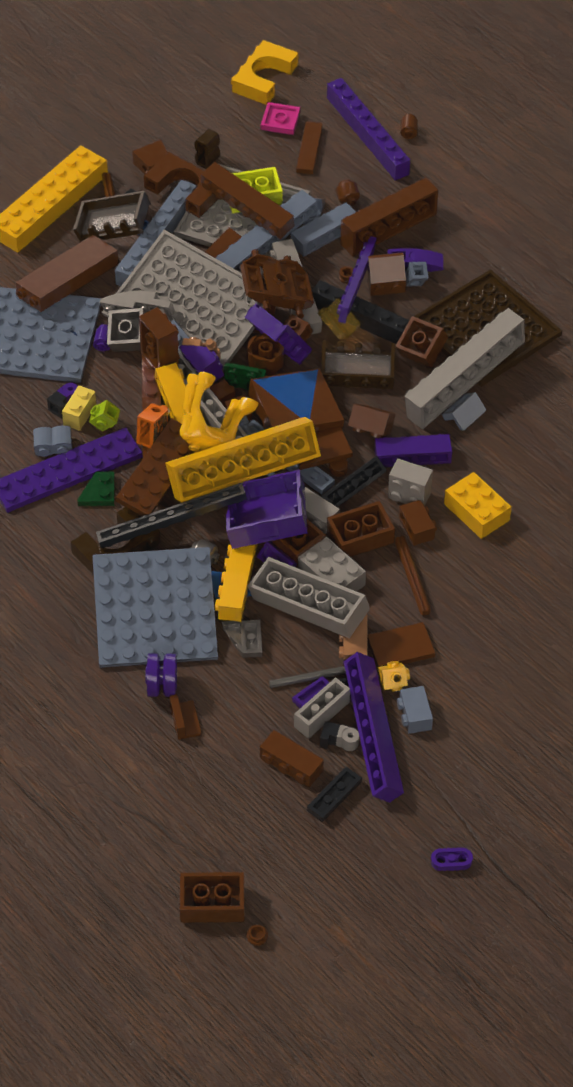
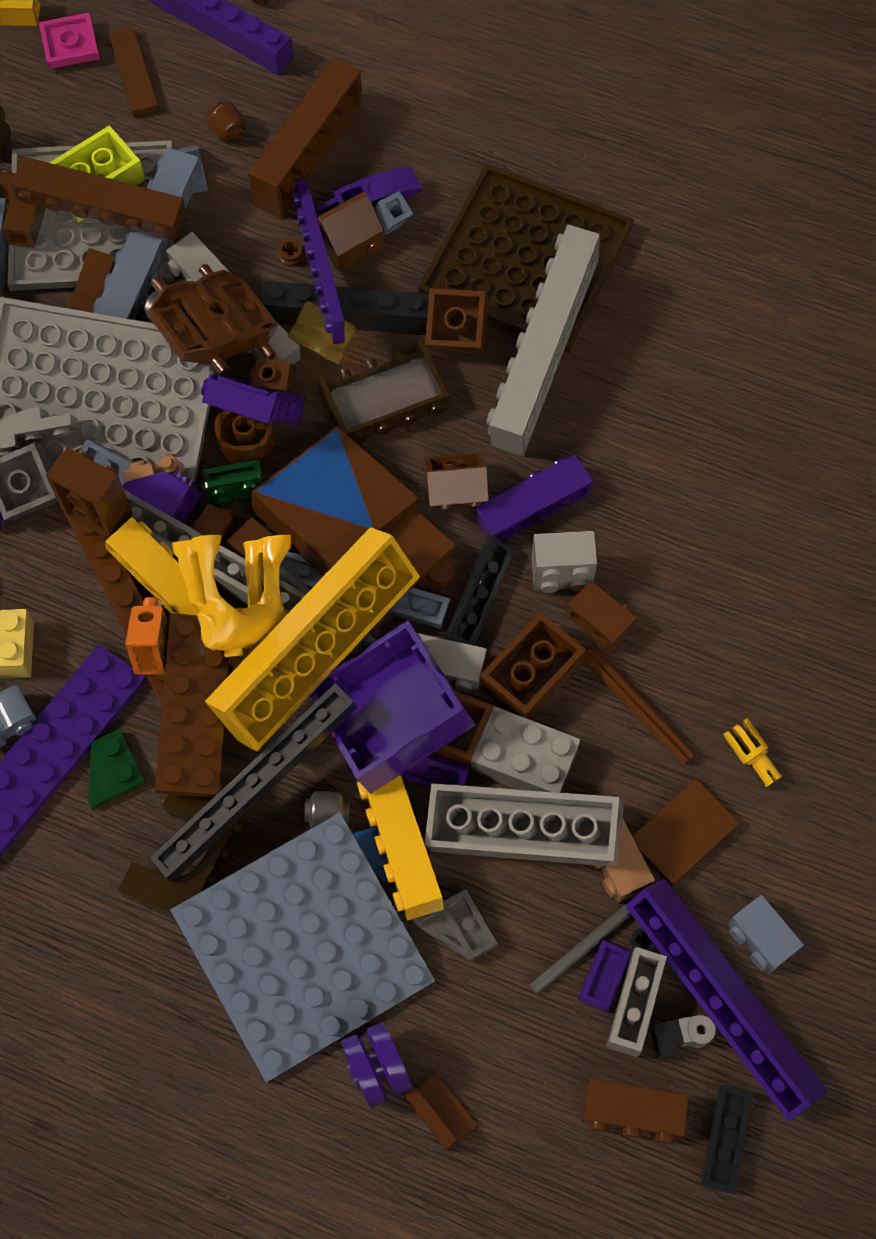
camera: 25 degrees left, 15 degrees up
(104, 415) = (59, 642): lime brick -> none
(321, 230) = (221, 194): sand blue brick -> none
(387, 675) = (707, 895): yellow brick -> none
(465, 410) = (568, 402): sand blue panel -> none
(465, 623) = (757, 756): none -> yellow arm
(477, 505) = (669, 550): yellow brick -> none

